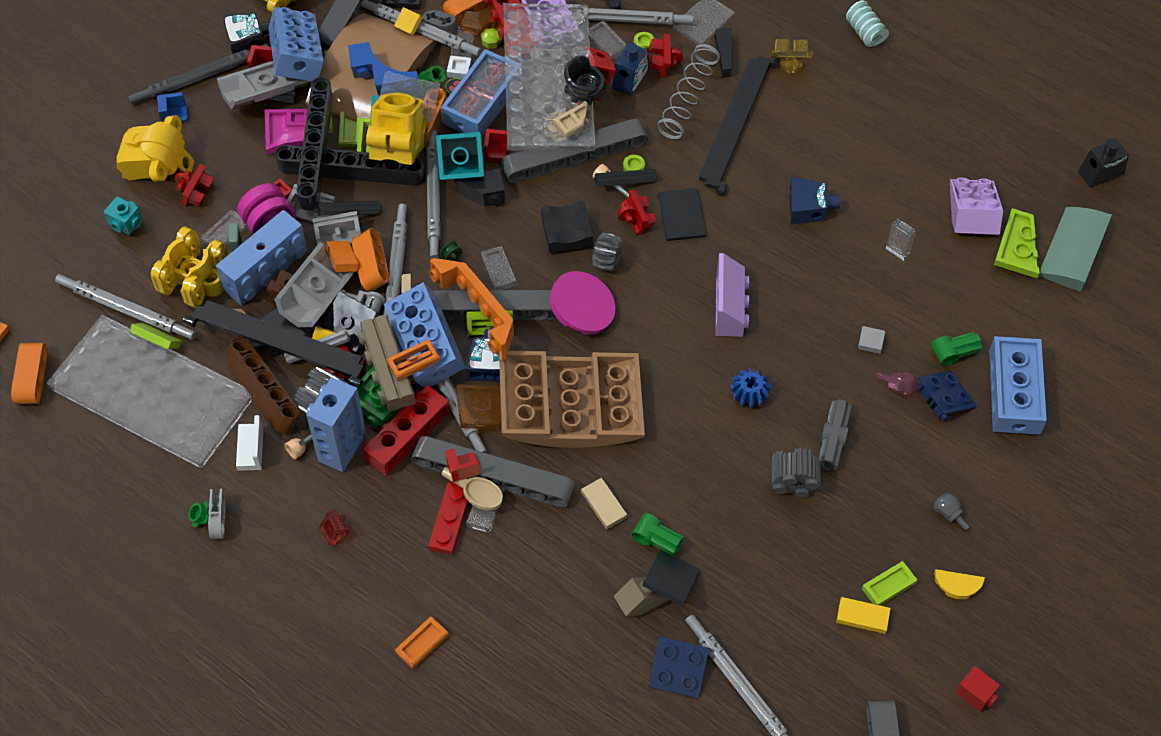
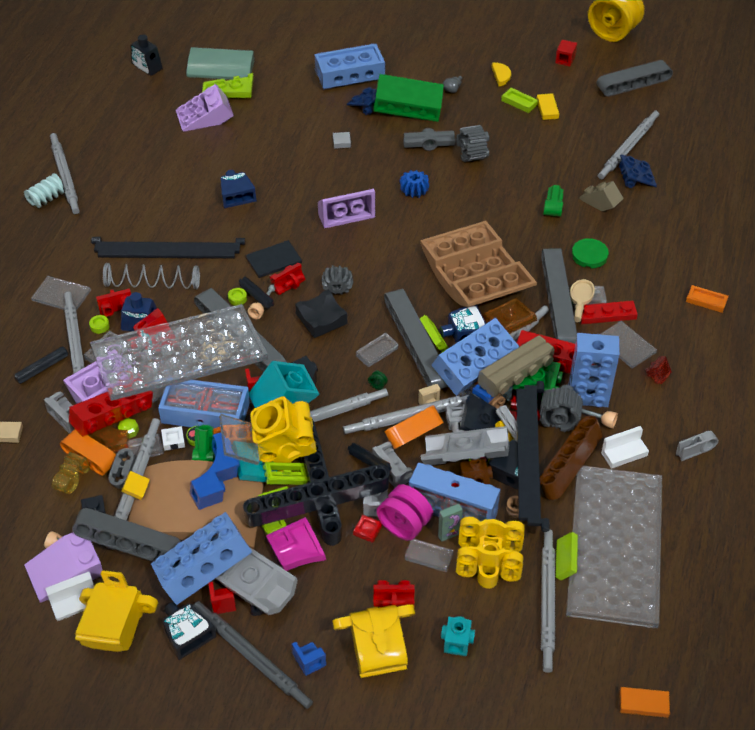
camera: 110 degrees left, 10 degrees down
(29, 373) = (657, 641): orange beam -> none
(199, 514) = (707, 457): green plate -> none
(342, 256) = (422, 444): orange tile -> none
(394, 519) = (632, 347): none -> clear piece
(414, 363) = (511, 341): orange tile -> none
(451, 272) = (461, 297): orange slope -> none
(462, 466) = (574, 300): red panel -> none
(553, 542) = (590, 253): none -> green tile
(571, 121) = (225, 319): tan tile -> none
(582, 302) = (391, 282): dark pink tile -> none
(583, 80) = (186, 315): black hair -> none
(604, 503) = (545, 236): tan tile -> none
(671, 577) = (584, 181): black piece -> none
(723, 43) = (94, 270): black piece -> none
(782, 51) = (91, 224): clear yellow hips -> none
(900, 239) = (257, 131): clear tile -> none
(902, 381) = (369, 119): clear pink piece -> none
(920, 51) = (64, 173): none -> light grey axle
(926, 433) = (408, 97): none -> green panel
(949, 349) = (332, 101): green piece -> none

